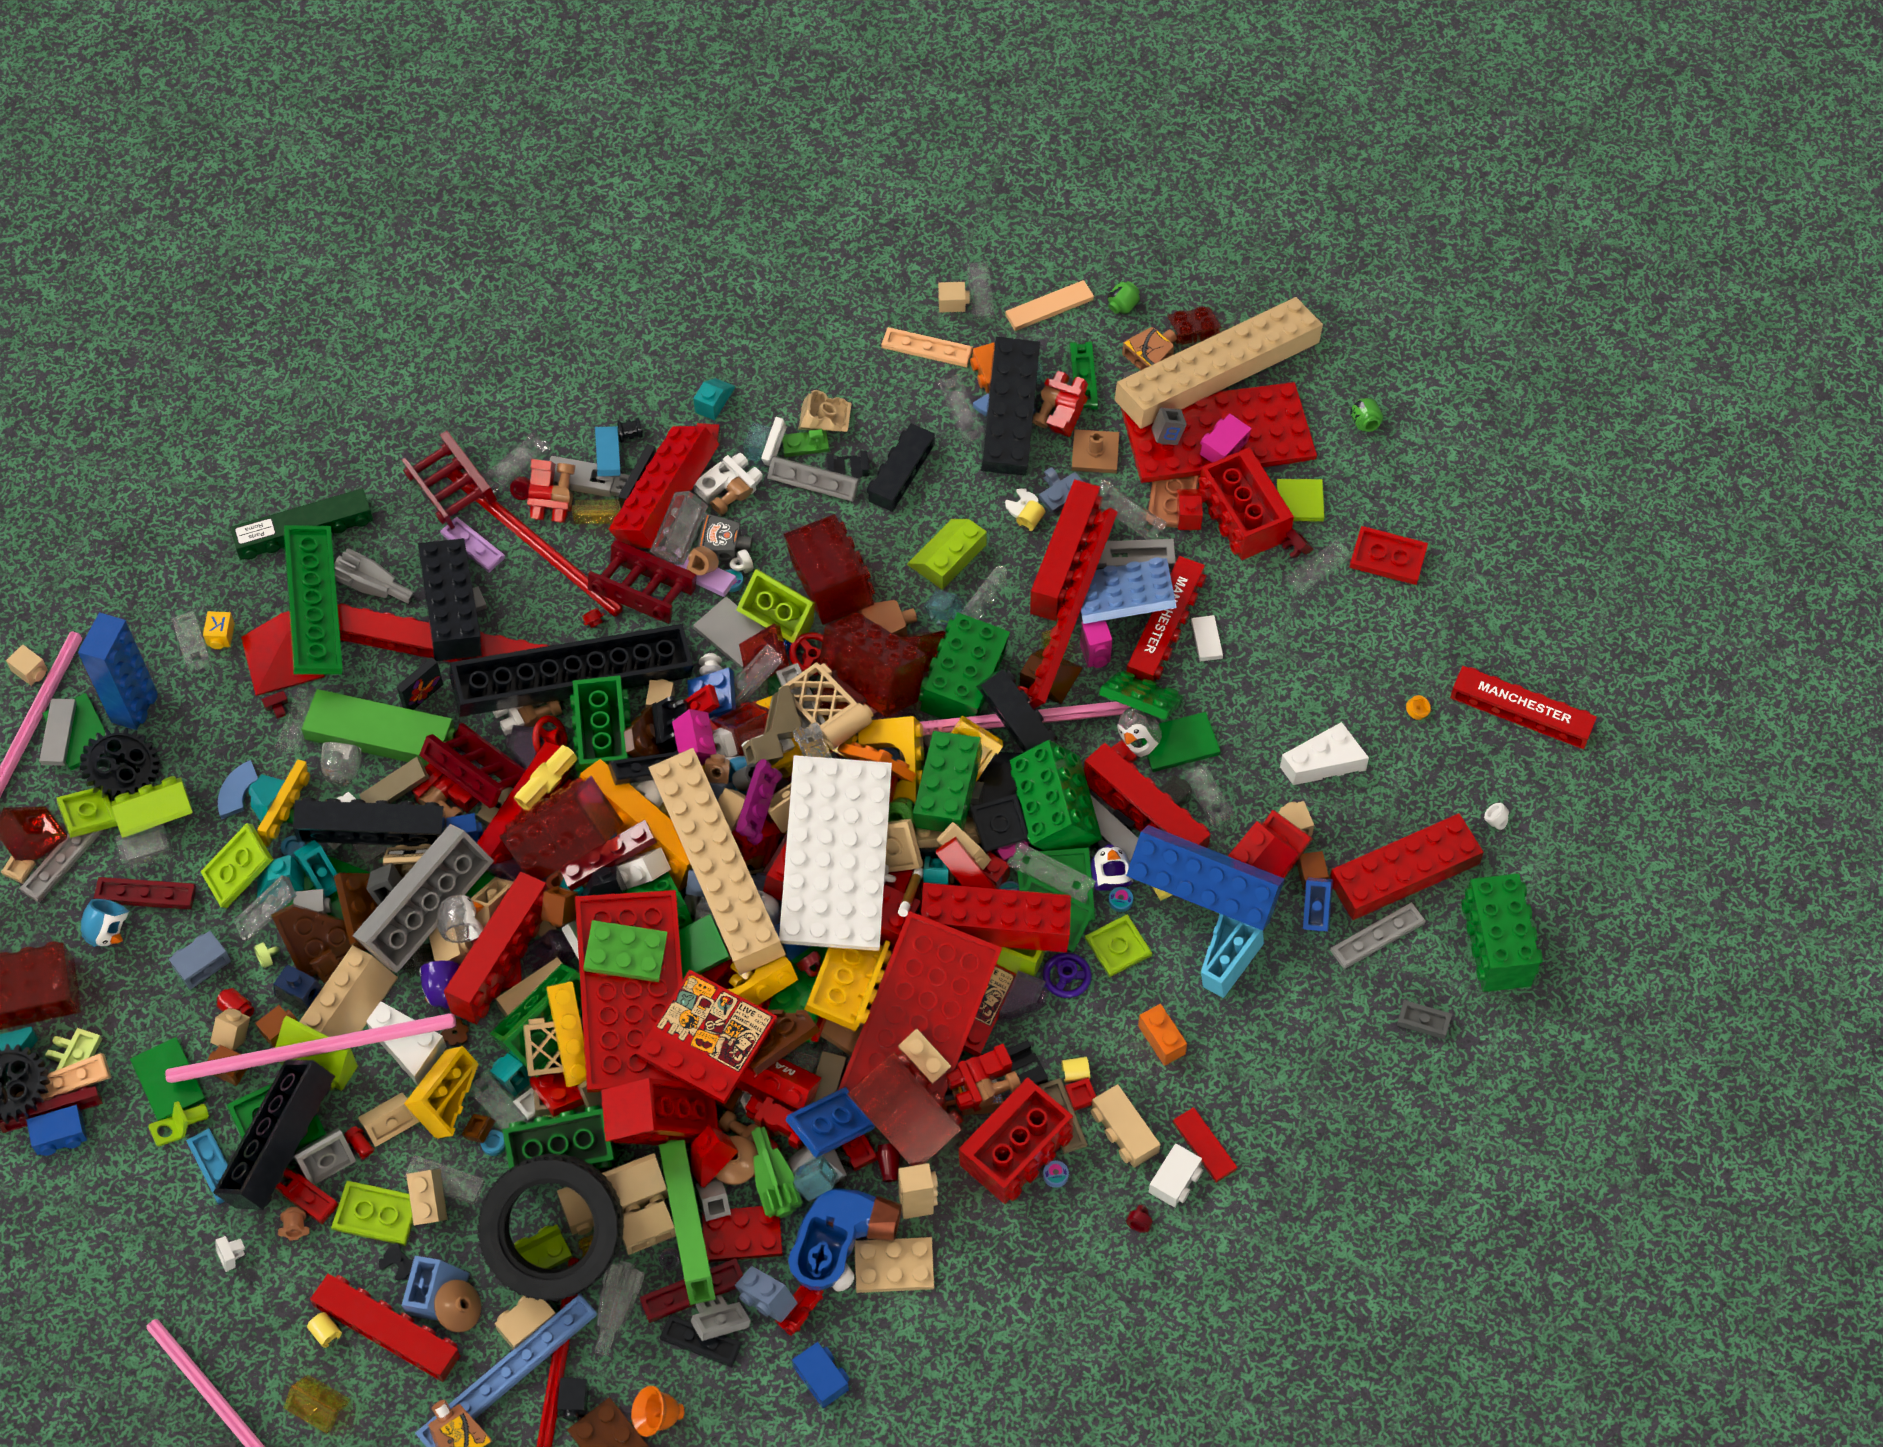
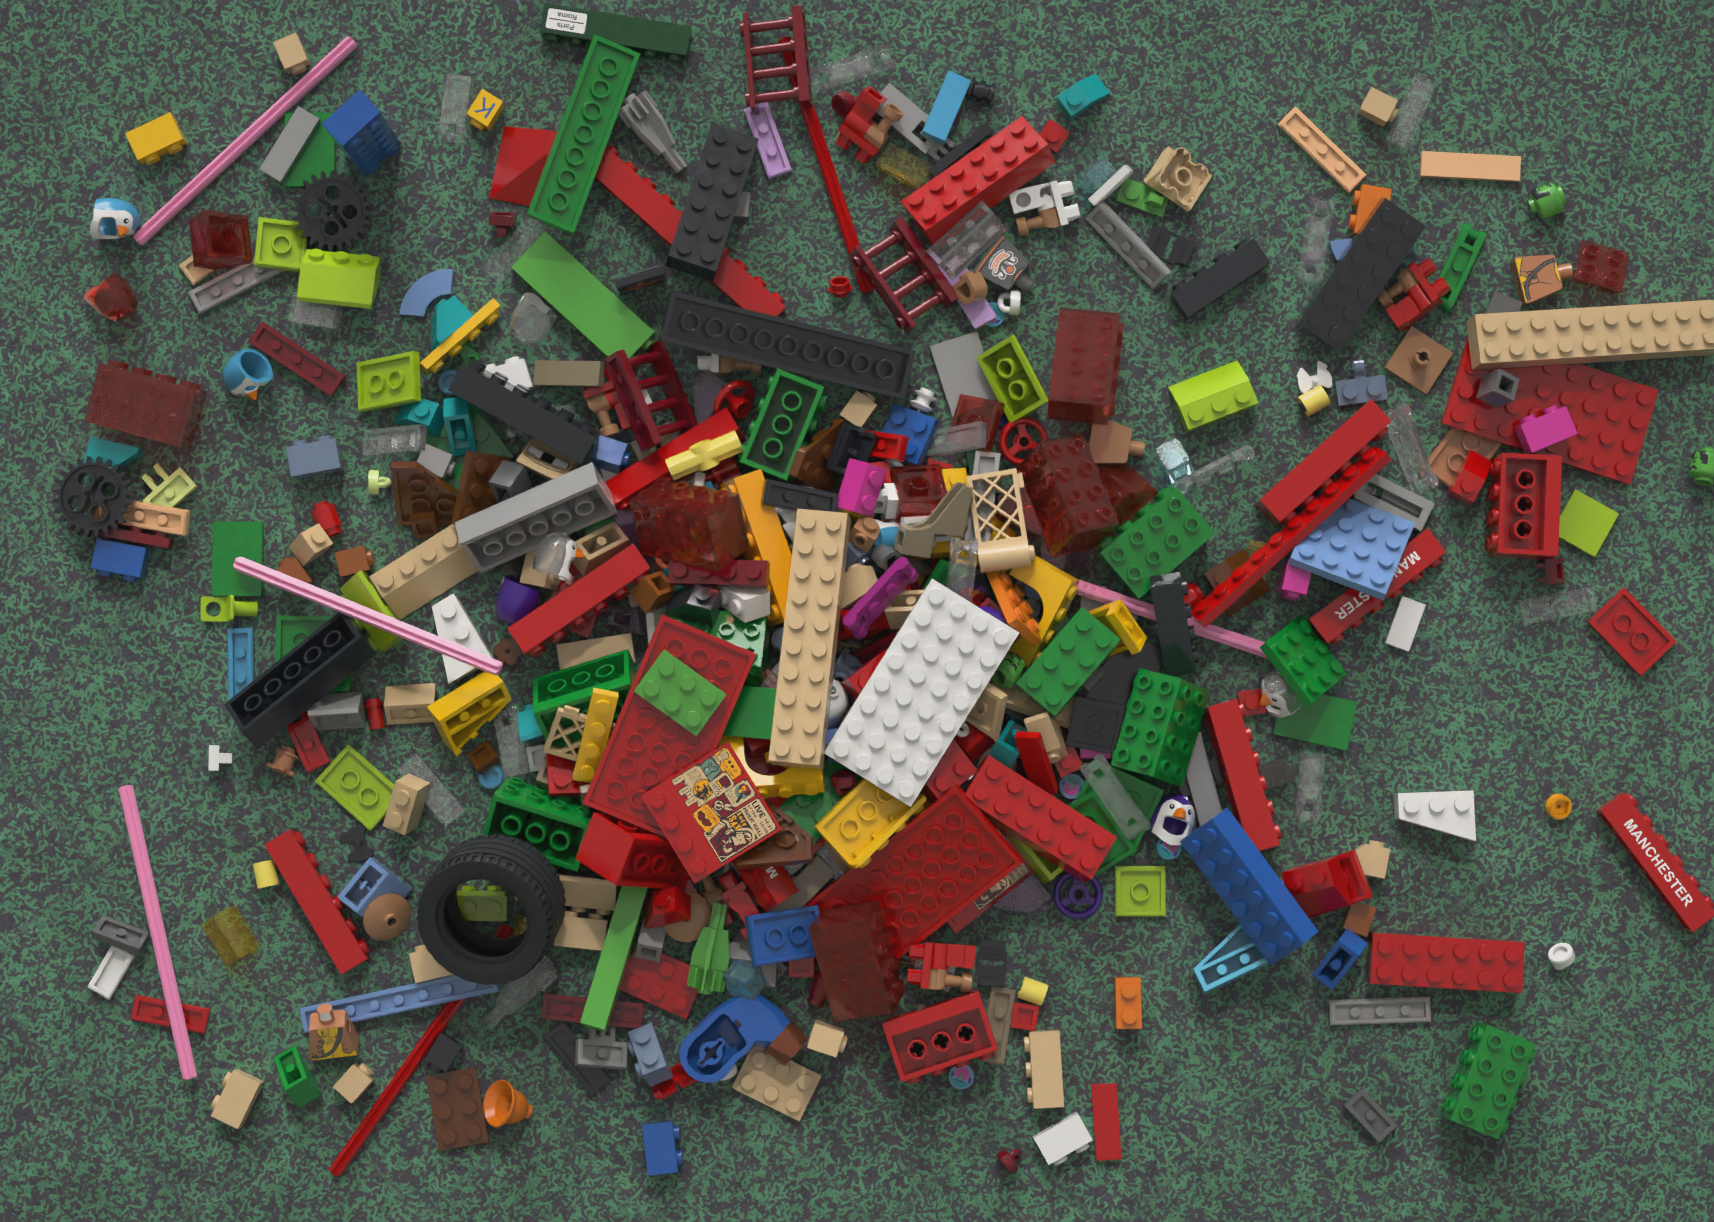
camera: 30 degrees right, 25 degrees up
(295, 987) = (388, 538): dark blue torso -> none
(669, 1262) = (587, 970): hinge -> none
(910, 892) = (967, 765): pearl gold bar -> none
(924, 1056) = (899, 921): tan brick -> none

